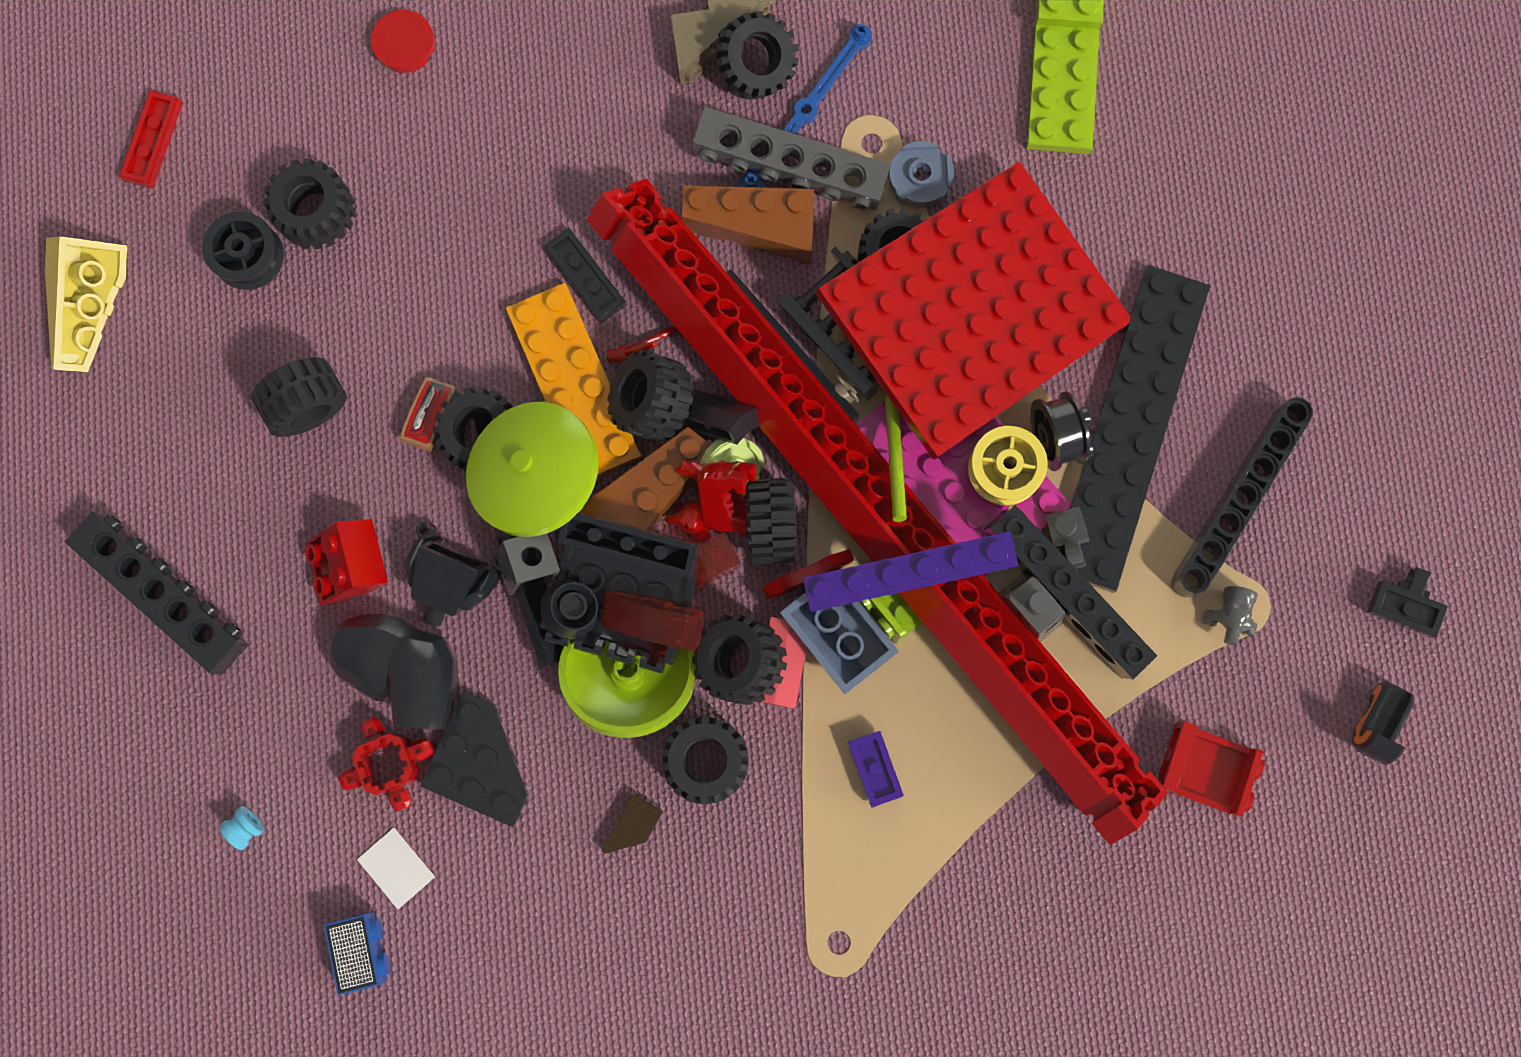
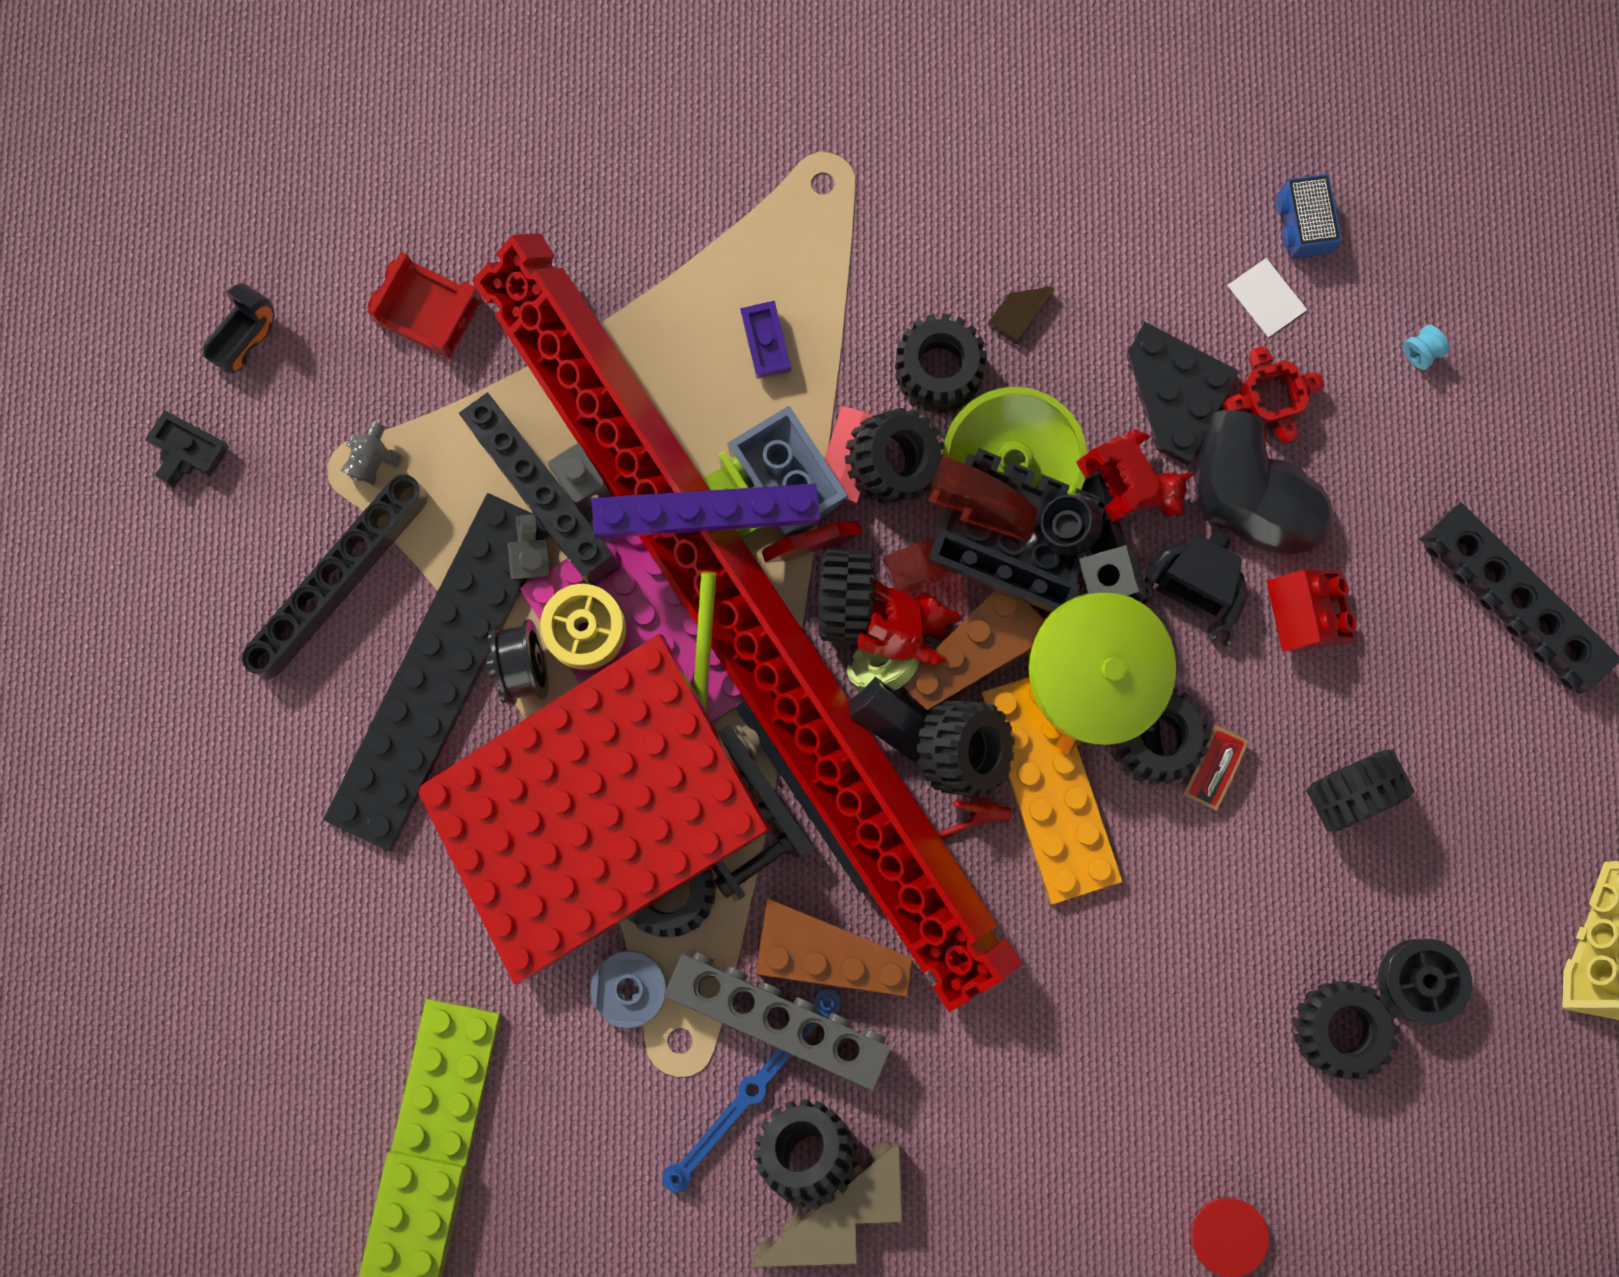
camera: 175 degrees left, 0 degrees up
(151, 139) = (1537, 1143): red tile -> none
(515, 660) = (1133, 479): none -> red animal
(585, 275) = (1029, 913): black tile -> none

